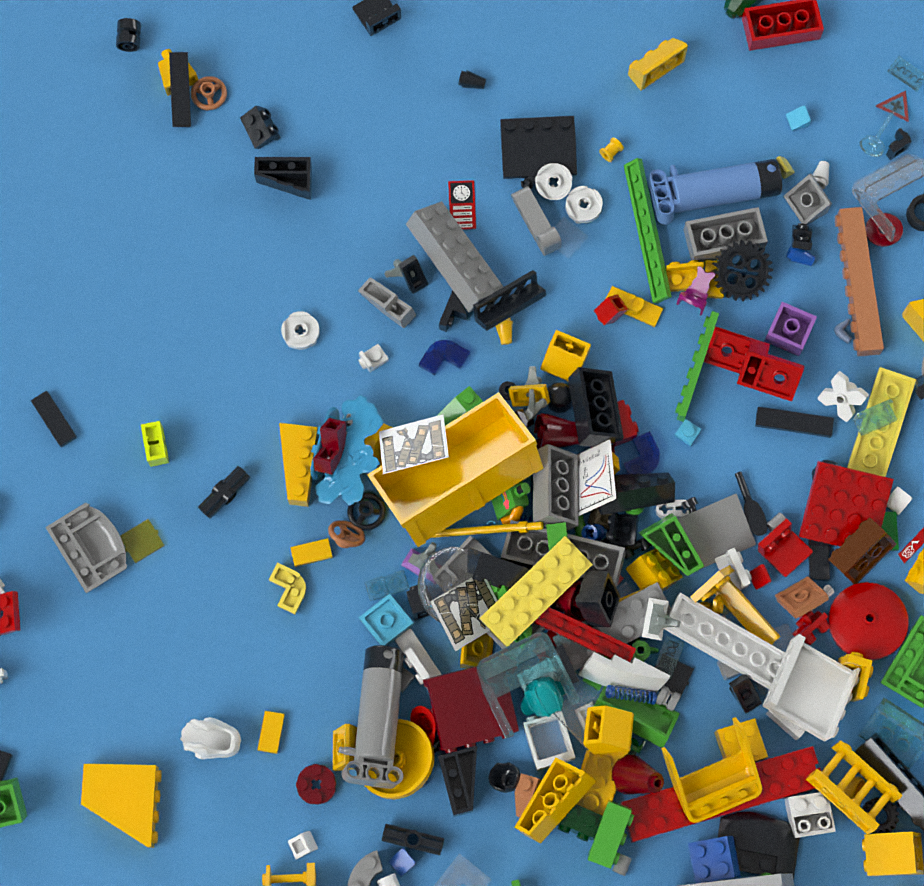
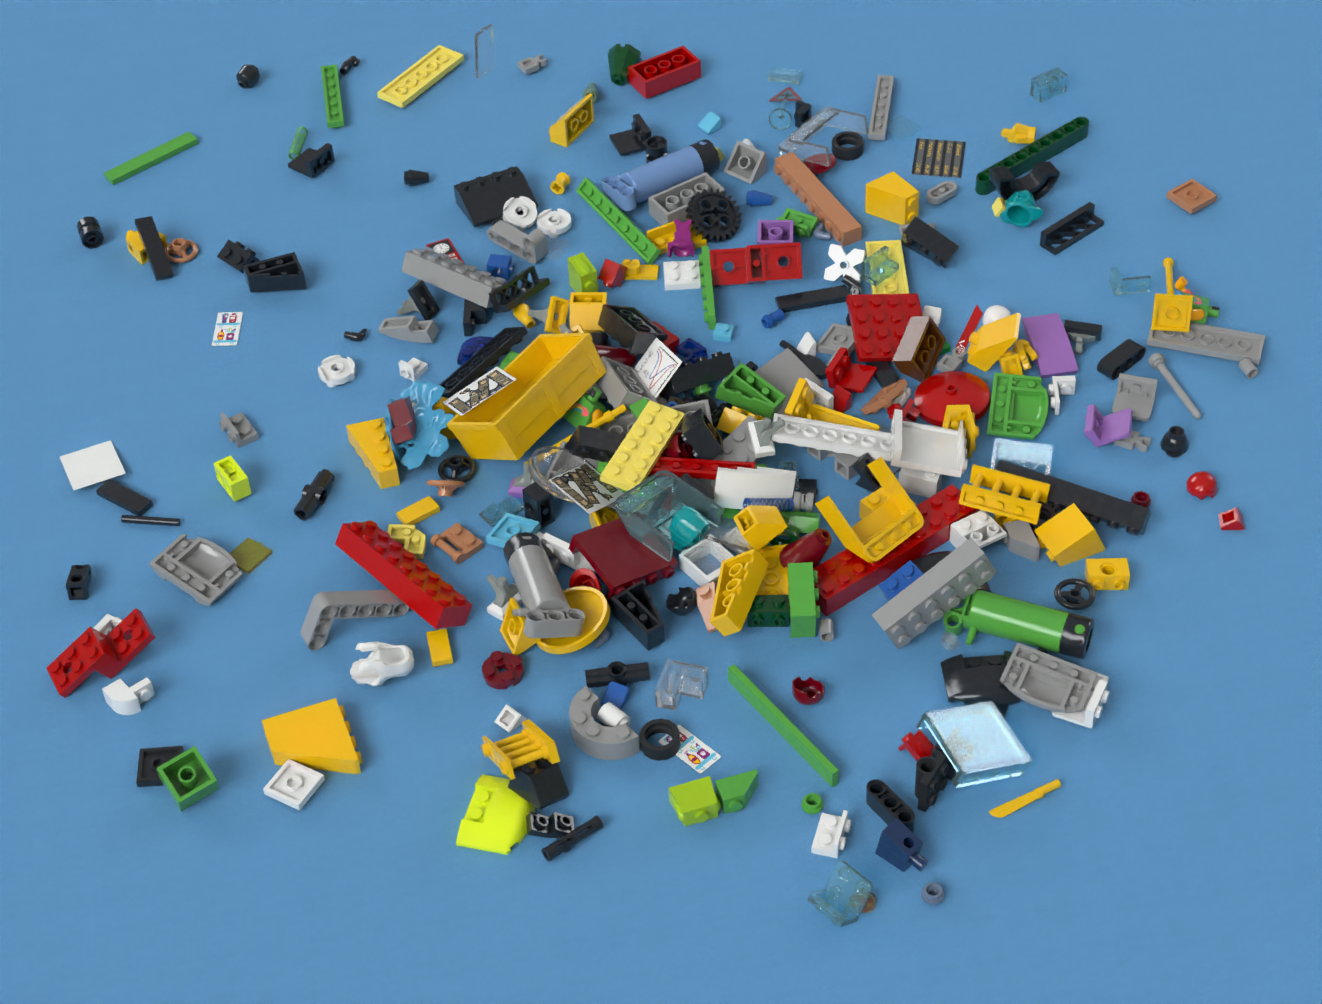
camera: 20 degrees left, 30 degrees down
(37, 363) = (92, 465): none -> white sticker
(67, 458) = (150, 520): none -> black bar
(90, 842) = (294, 784): none -> white plate
(184, 372) = (238, 429): none -> light grey bracket
(206, 665) = (344, 605): none -> light grey beam
(219, 223) = (227, 328): none -> sticker
(265, 639) = (404, 574): none -> red brick
(333, 288) = (355, 336): none -> black animal
(338, 605) = (460, 539): none -> nougat plate
(348, 701) = (503, 594): none -> light grey piece
(434, 386) = (482, 359): none -> black plate
(506, 251) = (500, 266): none -> blue brick
(530, 348) = (553, 315): none -> yellow piece
(578, 305) = (582, 274): none -> lime torso
(680, 333) = (682, 275): none -> white plate
(695, 21) = (592, 88): none -> sand green cone
(708, 111) = (633, 139): none -> black bracket
(725, 145) = (655, 148): none -> black wheel
(743, 435) = (773, 318): none -> blue pin
(758, 490) = (807, 345): none -> white slope
(791, 497) = (836, 337): none -> light grey plate
(801, 236) = (752, 183): black slope -> none
(825, 309) = (802, 223): none -> bright green bracket
(841, 424) = (854, 285): none -> black arm
(848, 836) = (1021, 540): none -> light grey slope
(889, 572) = (951, 362): none -> light grey plate

